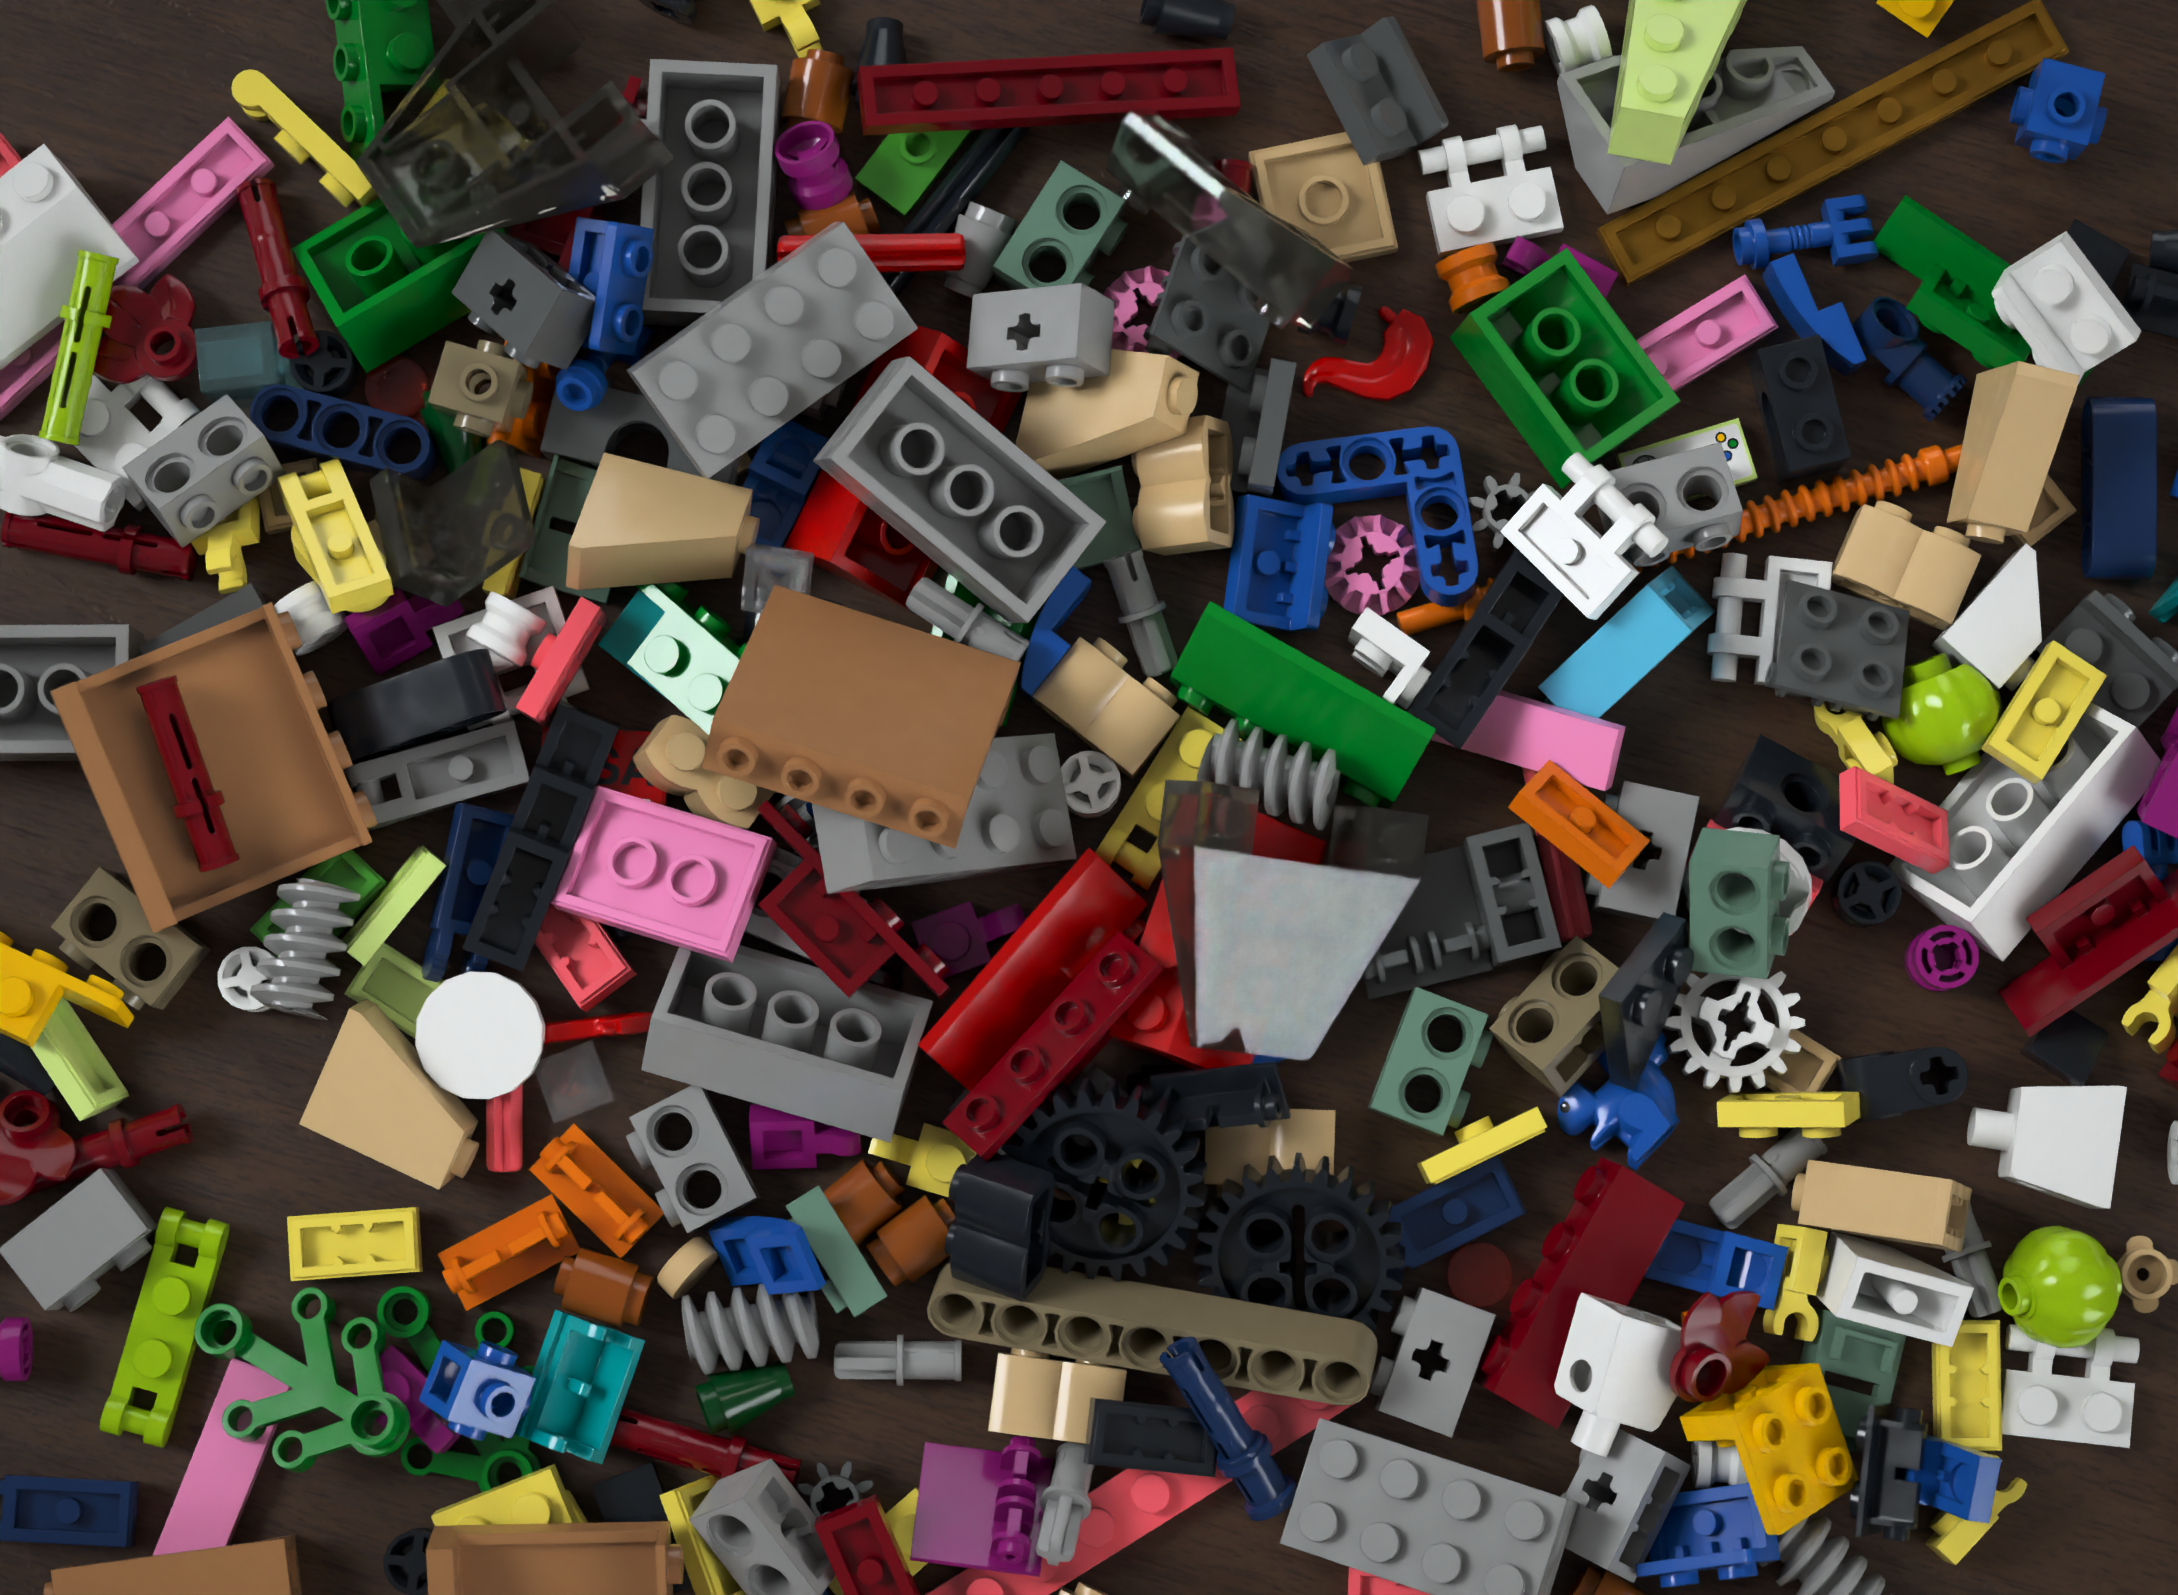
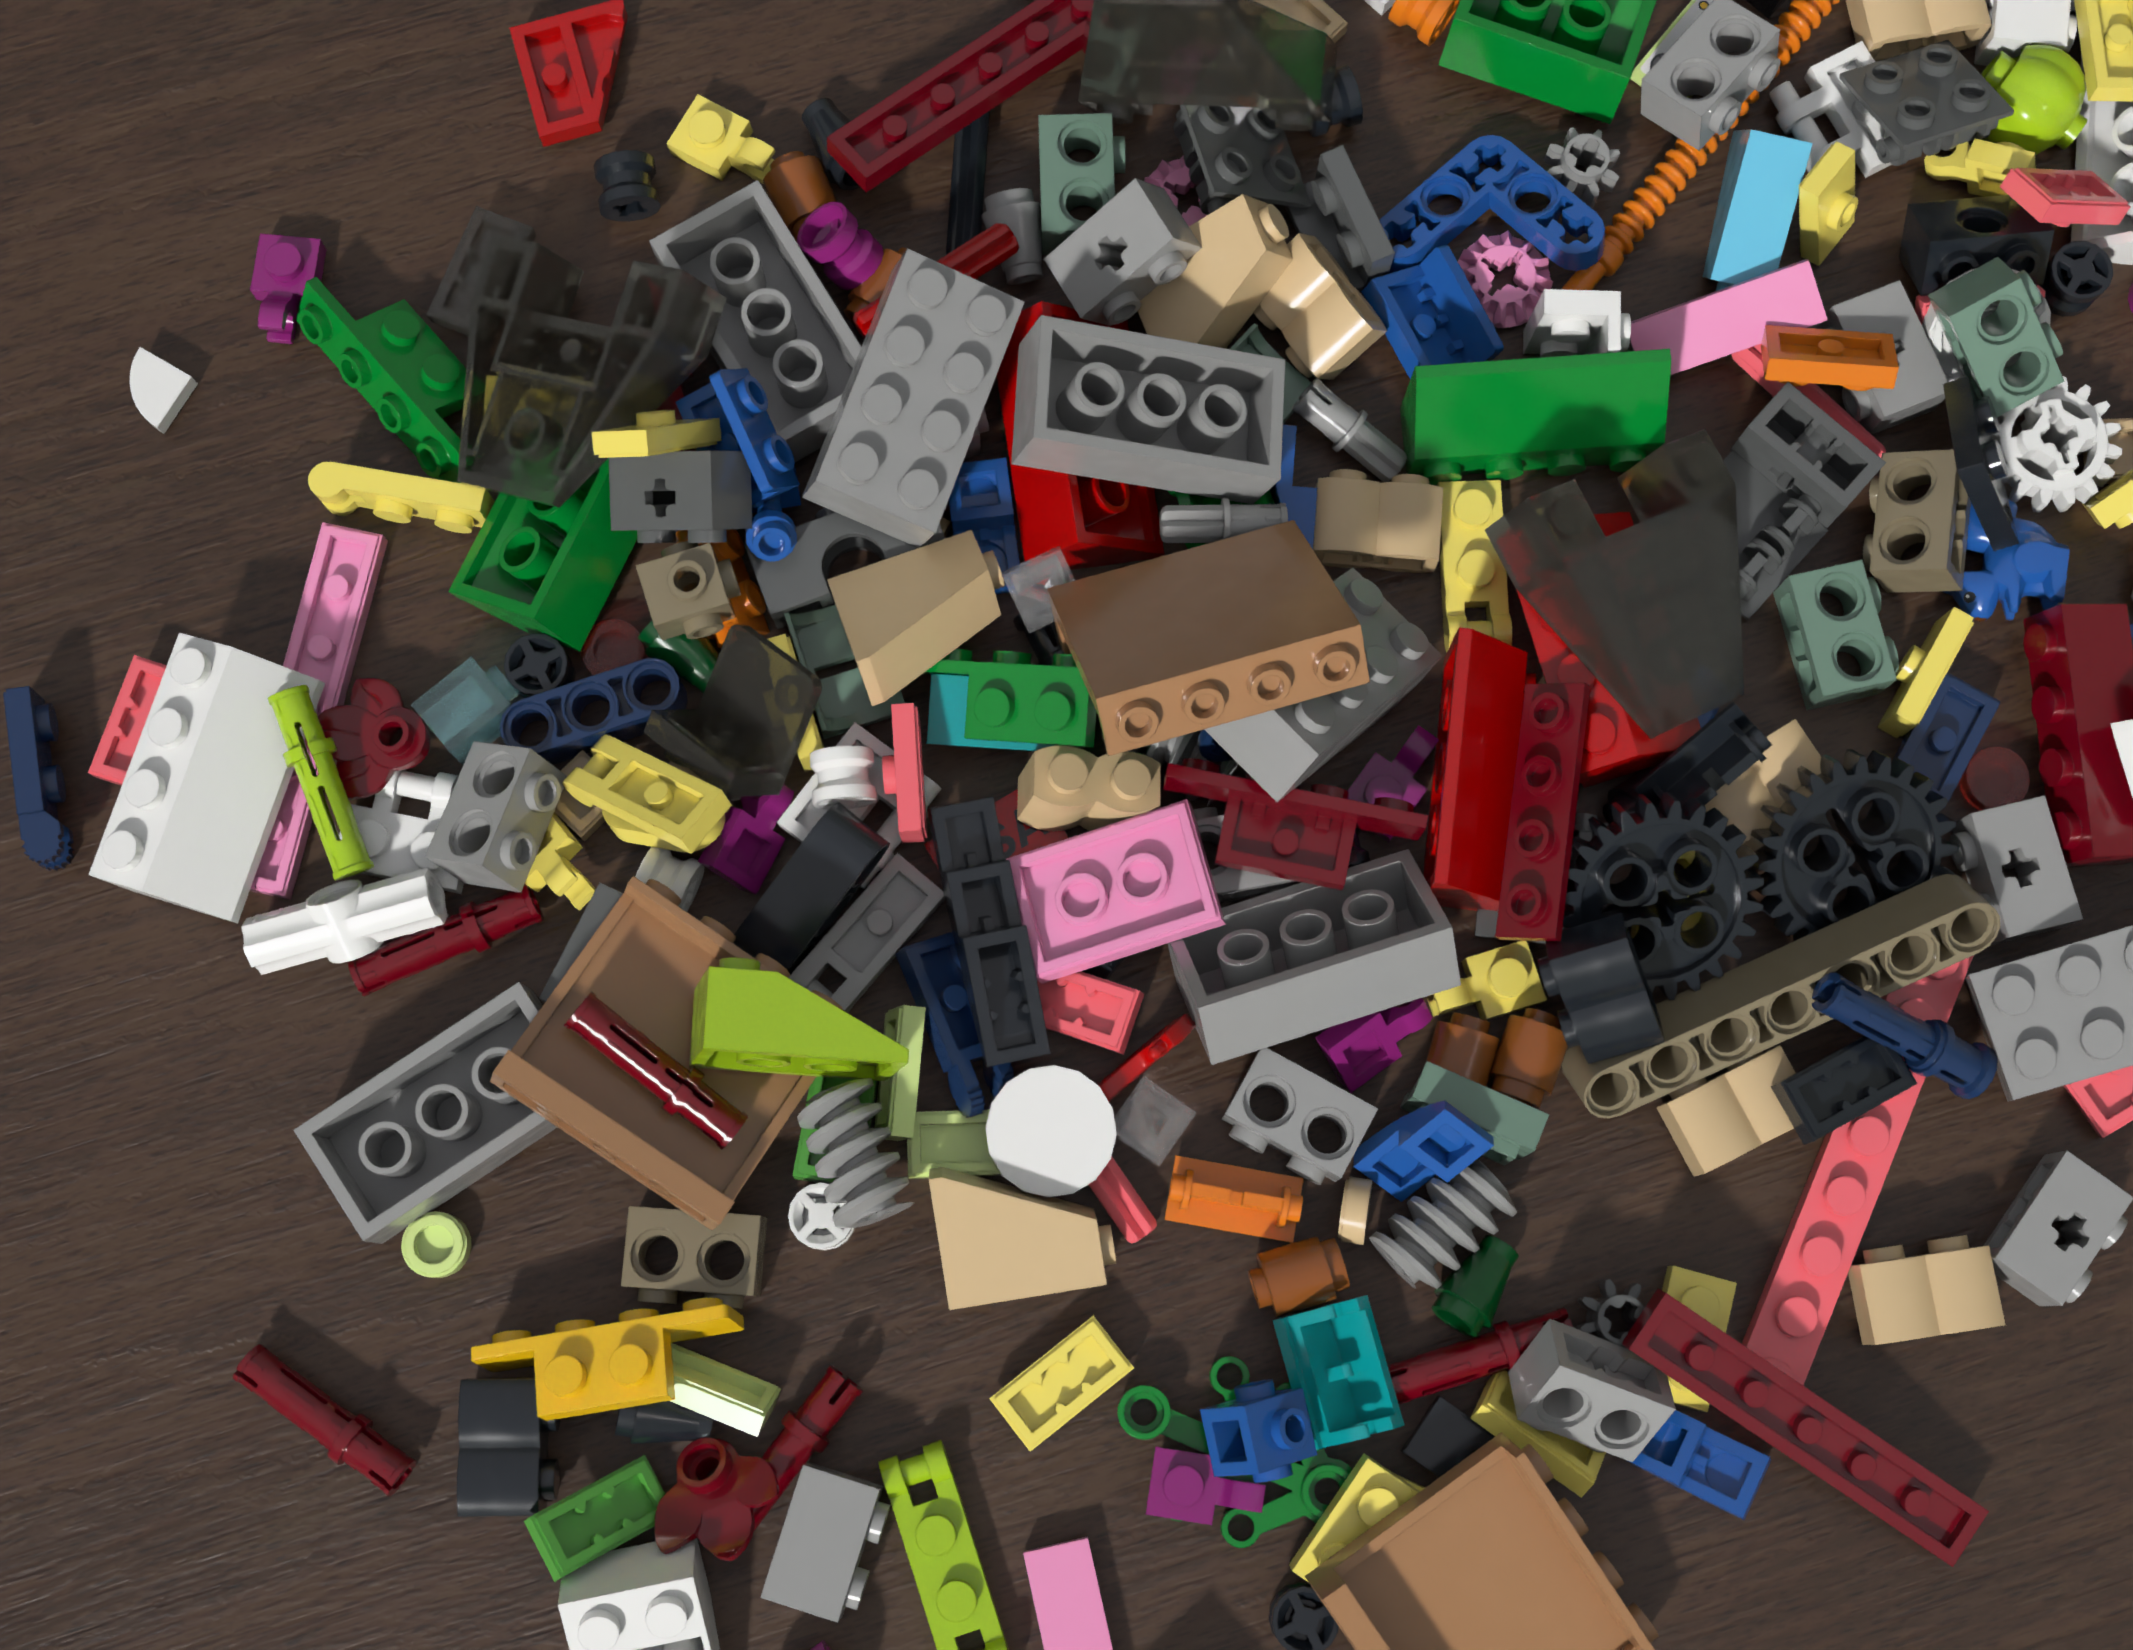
camera: 35 degrees left, 5 degrees down
(282, 289) = (464, 625): dark red pin -> none
(299, 799) = (778, 1027): none -> lime slope
(313, 1385) = (1114, 1528): green plant -> none
(508, 1252) = (1196, 1301): orange hinge -> none
(532, 243) = (656, 434): none -> light yellow plate
(898, 1360) = (1583, 1168): light grey axle -> none
(909, 166) = (913, 205): bright green plate -> none
(981, 1507) = (1743, 1242): magenta hinge -> none
(1064, 1504) = (1811, 1190): light grey axle -> none
(1095, 771) = (1411, 584): white wheel -> none
(1280, 777) = (1590, 465): light grey piece -> none
(1393, 374) = (1412, 115): red piece -> none
(1486, 650) = (1652, 241): black slope -> none
(1570, 550) = (1673, 144): white plate -> none
(1685, 688) = (1827, 202): none -> light yellow plate

